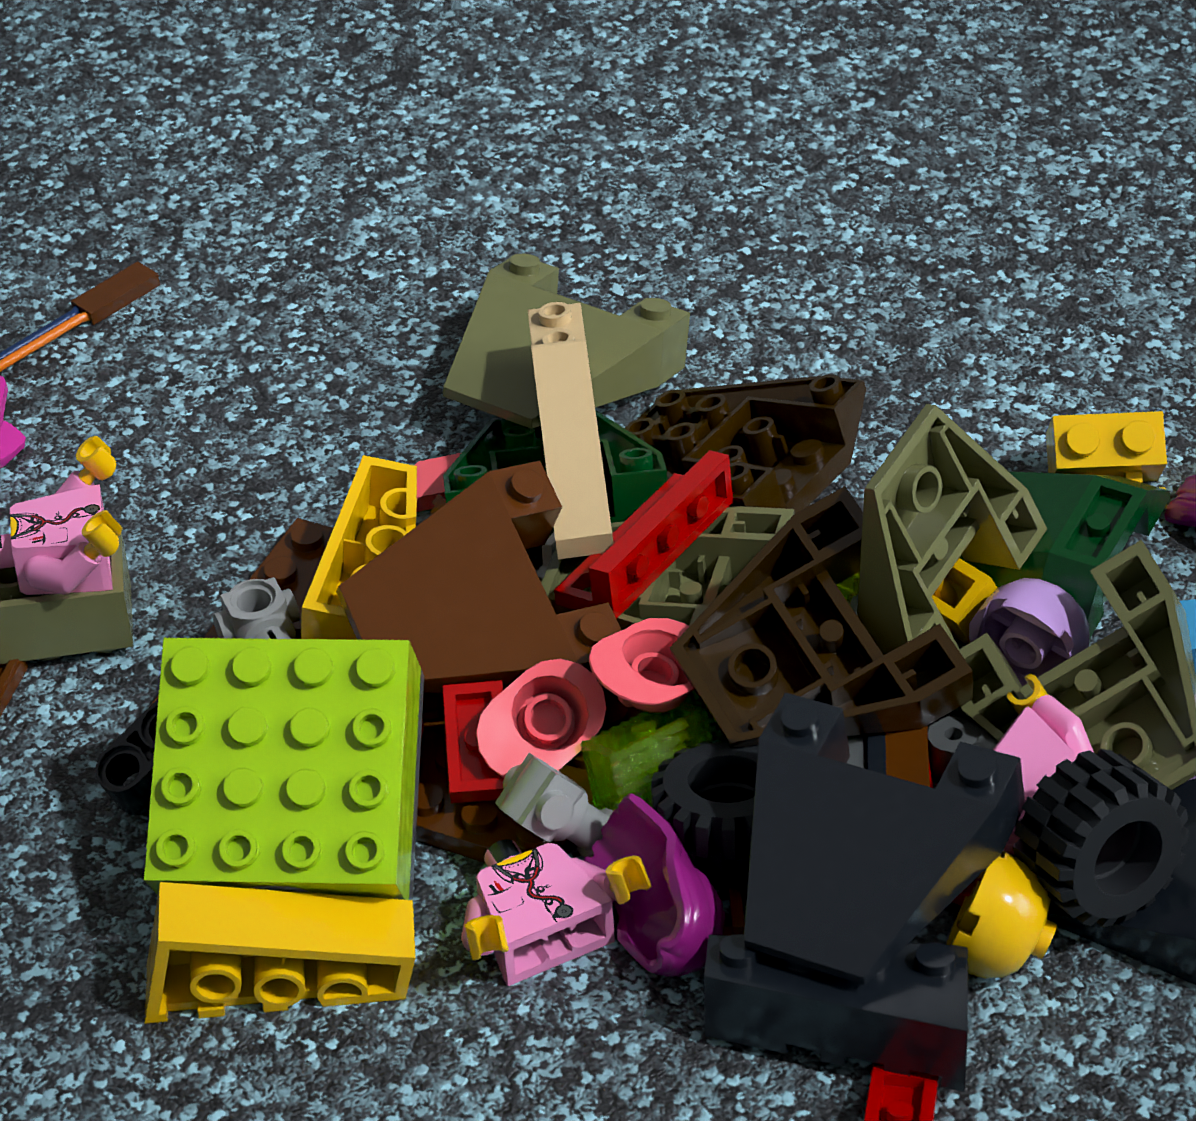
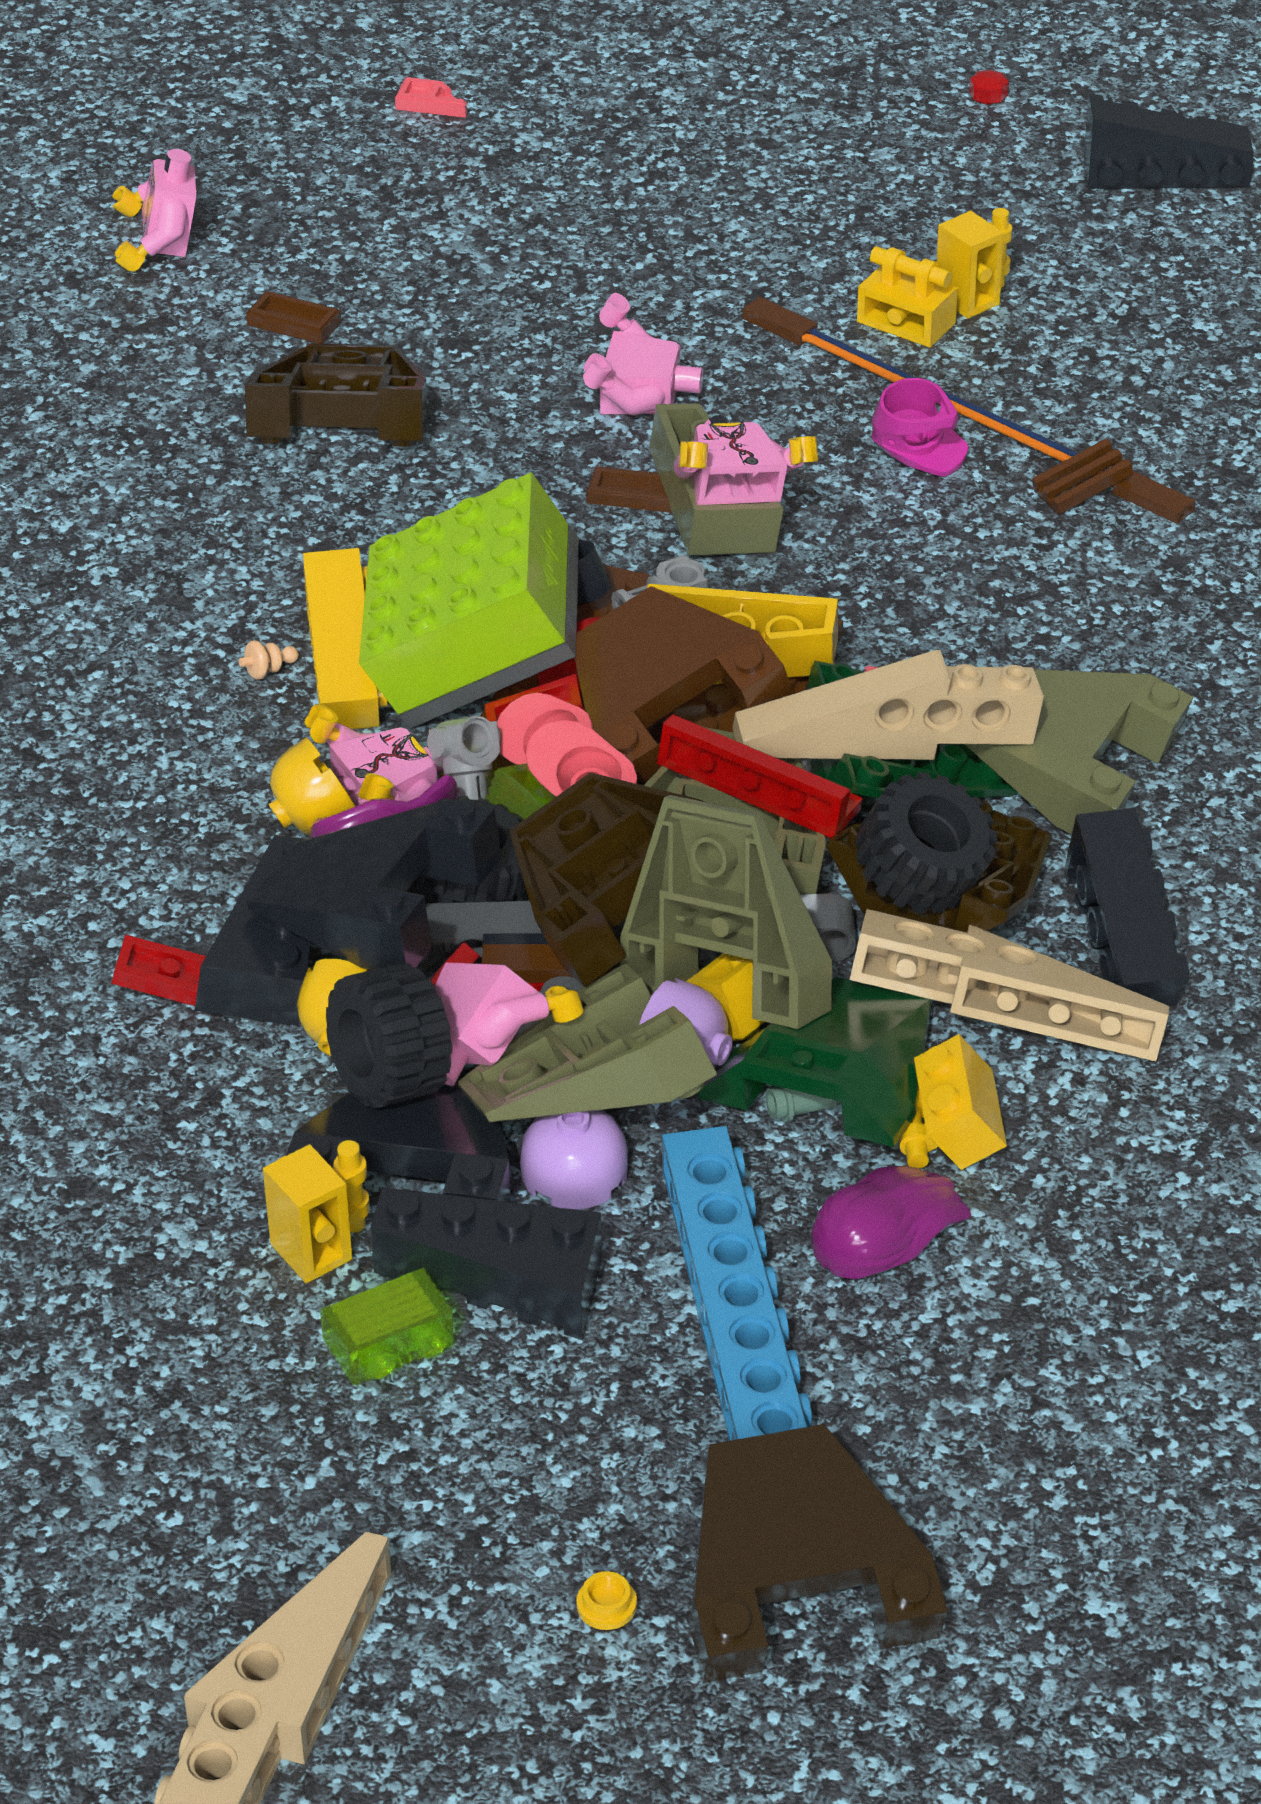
camera: 85 degrees right, 0 degrees up
(70, 303) = (1078, 472): none -> reddish brown tile
(263, 1051) = (261, 659): none -> light nougat hair
(579, 970) = (305, 788): none -> yellow cylinder
(776, 415) = (943, 818): none -> black tyre
(821, 328) = (1125, 904): none -> black wedge
(950, 374) = (1006, 984): none -> tan brick

